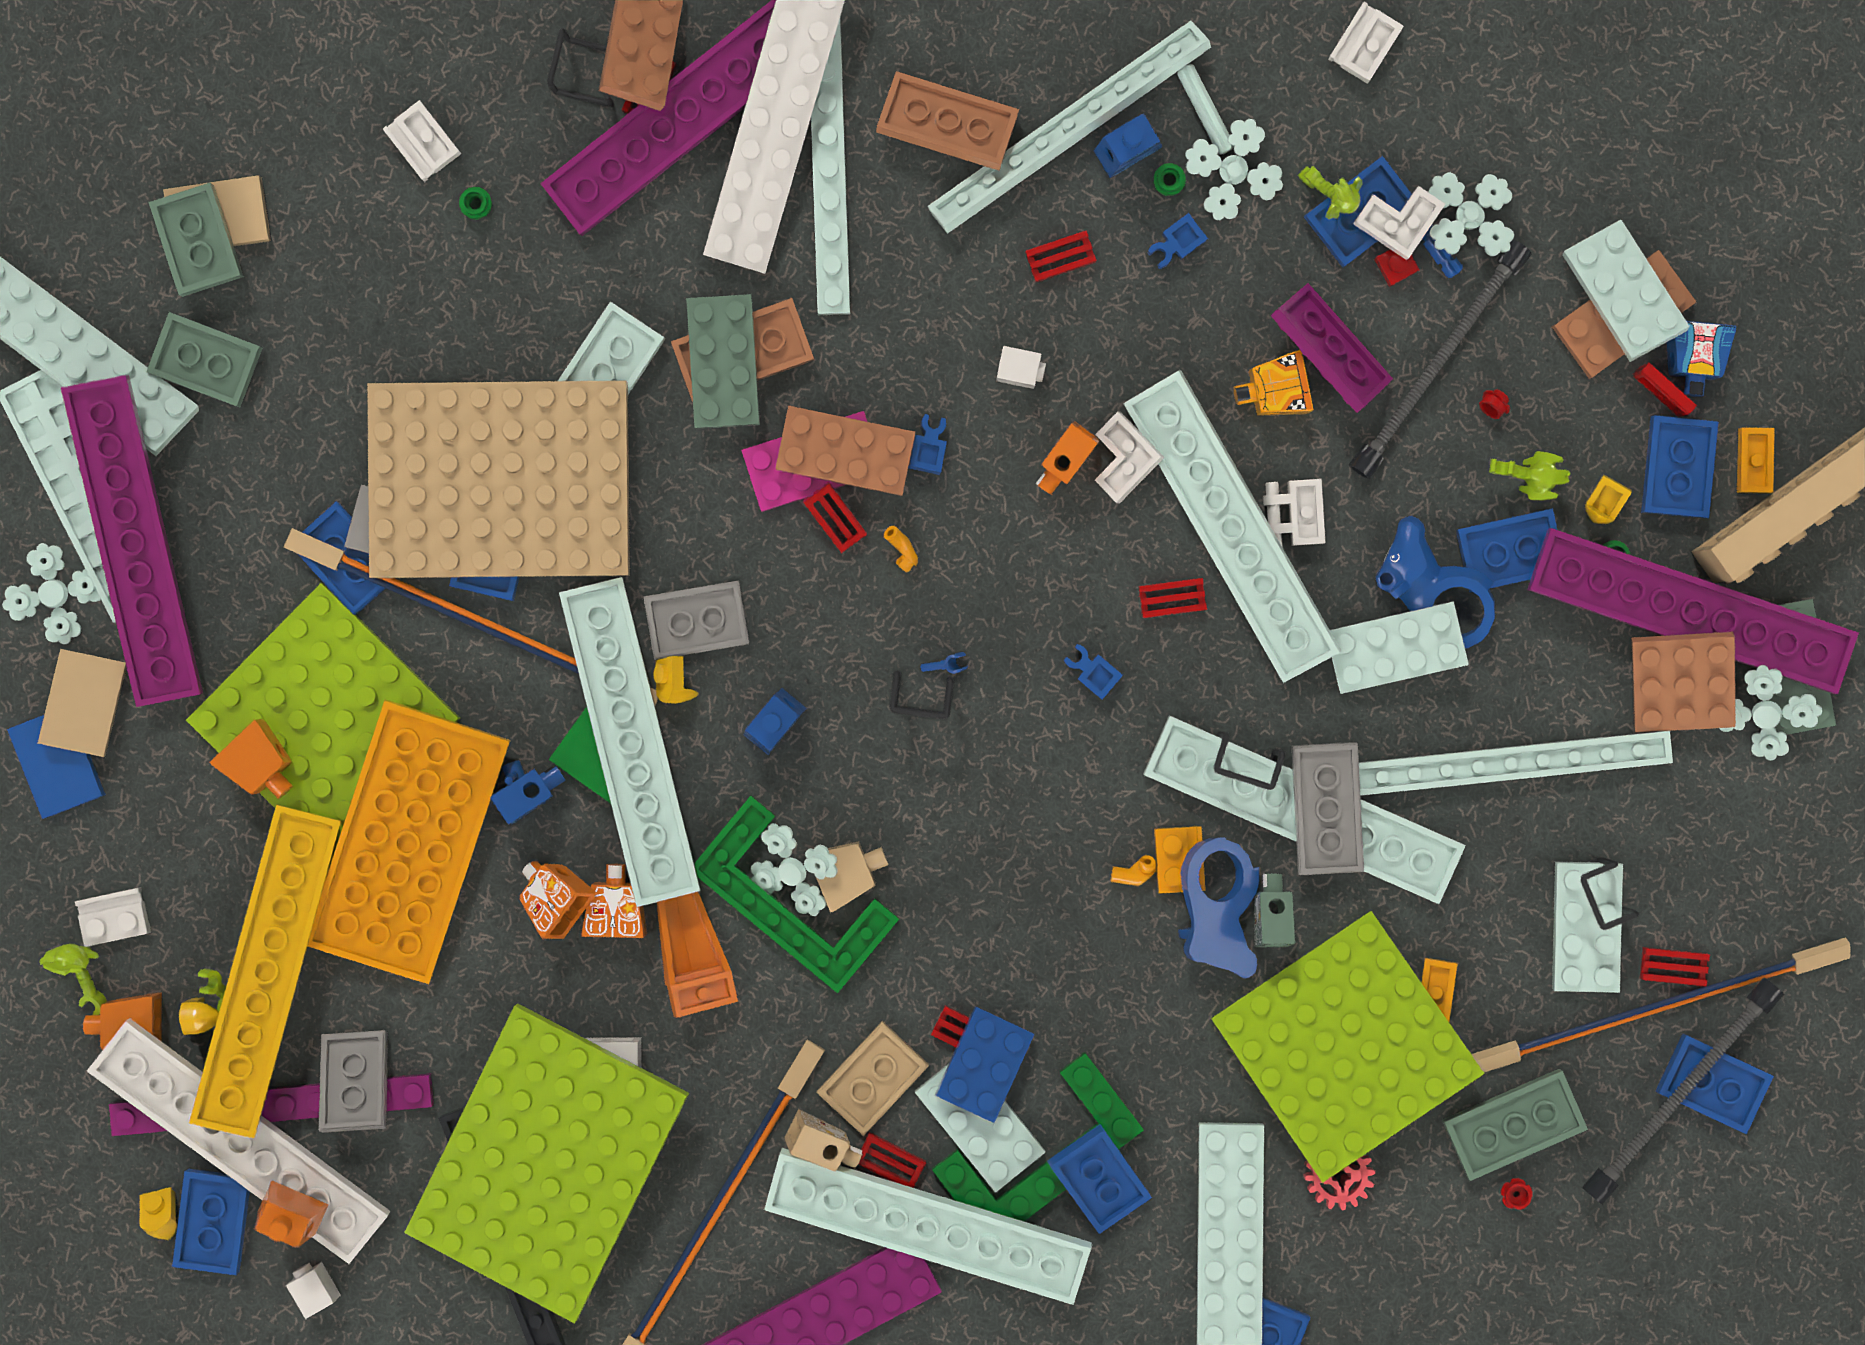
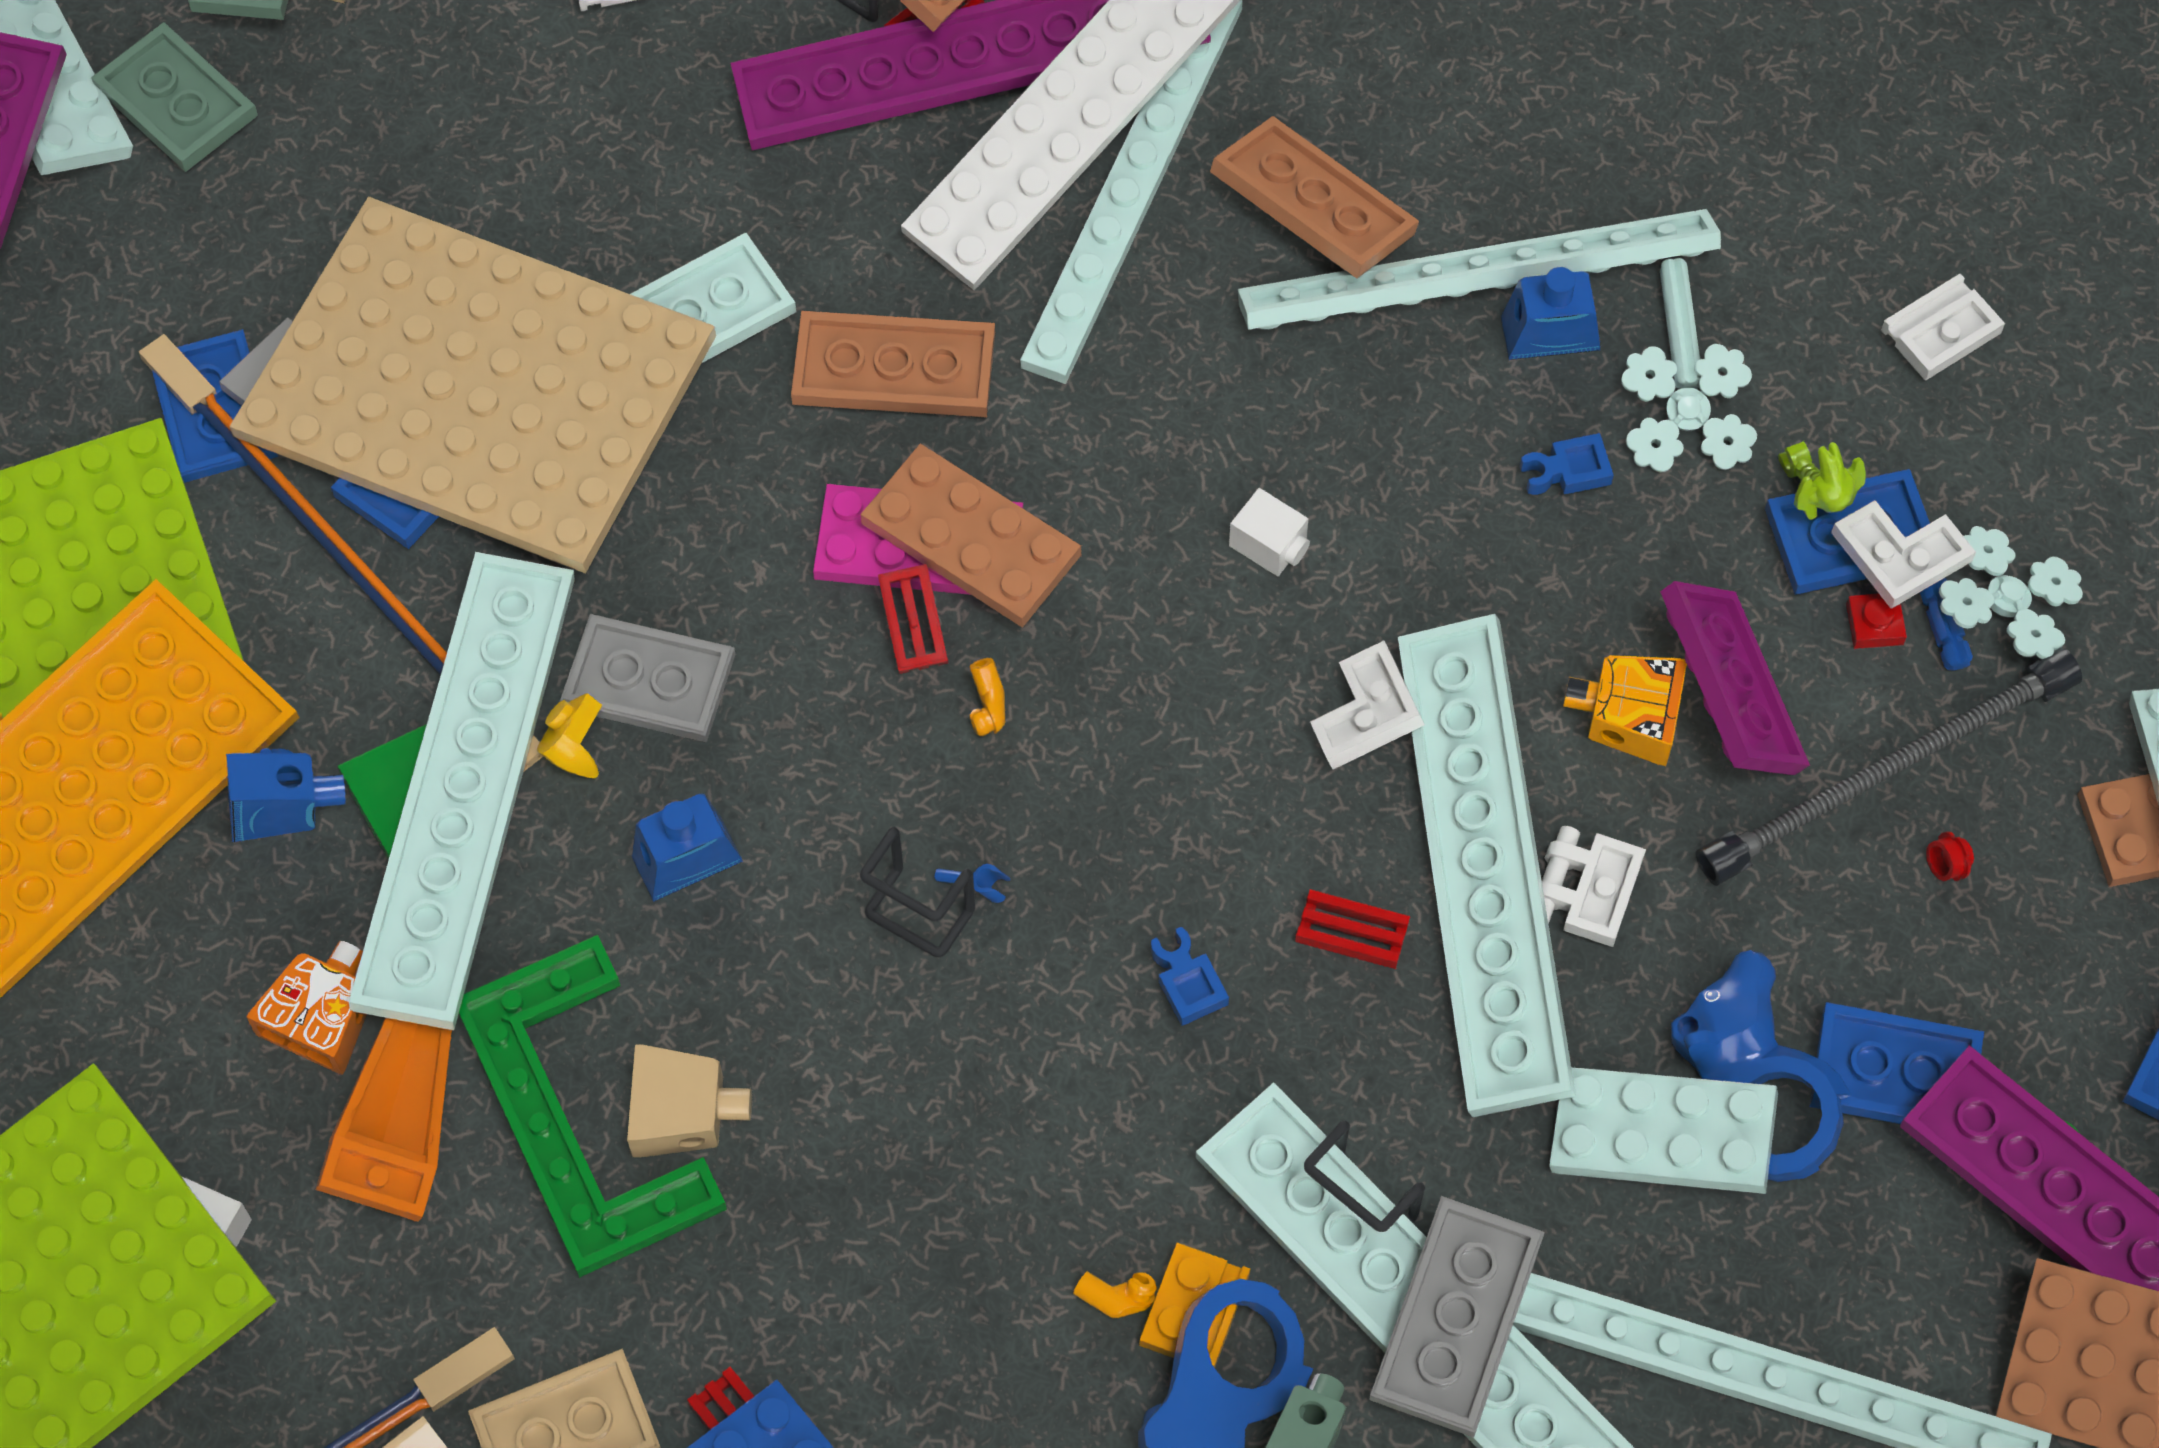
camera: 30 degrees right, 25 degrees down
(465, 203) = (632, 46): green plate -> none
(554, 898) = (237, 951): orange torso -> none
(723, 361) = (859, 359): sand green plate -> none
(793, 871) = (603, 1056): light aqua plant -> none
(927, 450) = (1090, 588): blue plate -> none
(1074, 444) = (1286, 665): orange torso -> none
(1086, 247) = (1394, 416): red tile -> none
(1169, 169) = (1595, 376): green plate -> none
(1540, 476) = (1981, 978): lime piece -> none
(1606, 500) = (2073, 1058): yellow plate -> none

